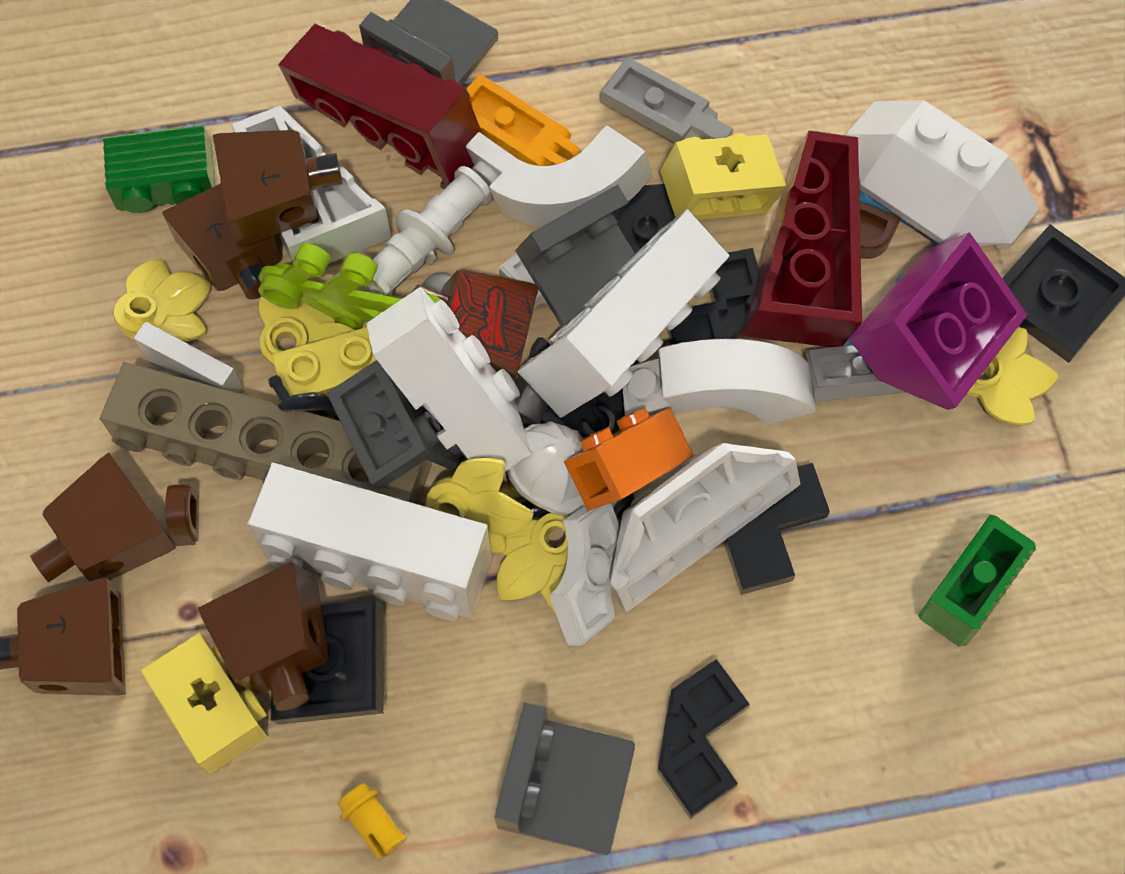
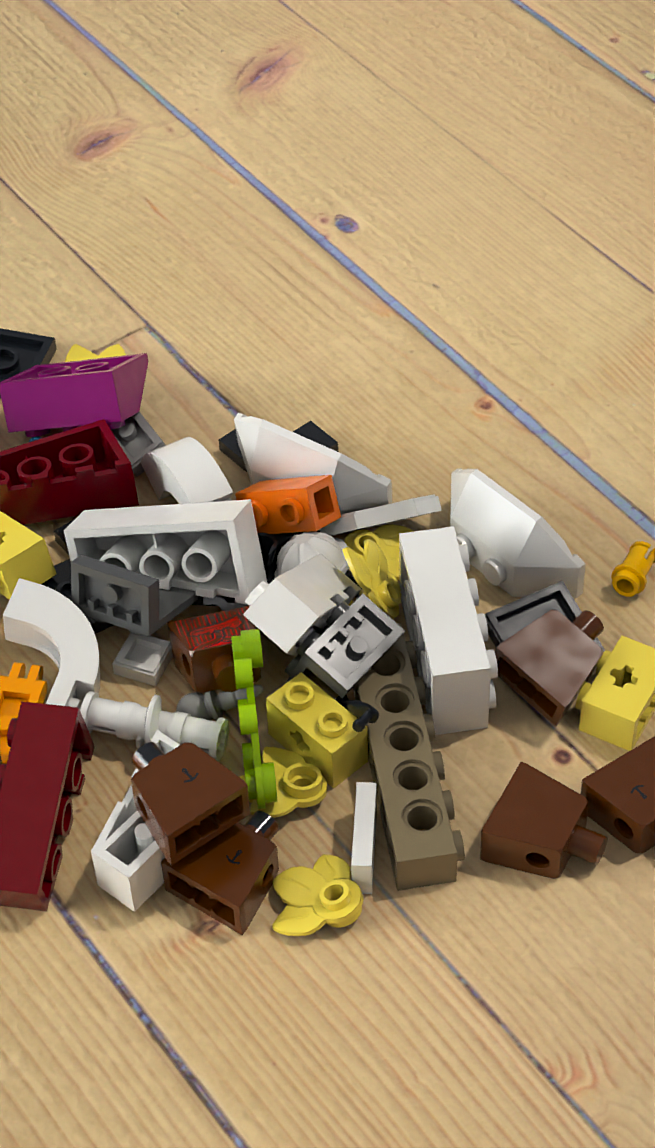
camera: 115 degrees left, 20 degrees down
(157, 167) = (186, 957): green brick -> none
(182, 514) = (489, 781): reddish brown tile -> none
(484, 688) = (509, 539): none -> white wedge
(564, 783) = (543, 479): dark grey bracket -> none
(686, 758) = (472, 436): black tile -> none
(977, 581) = (262, 324): green brick -> none

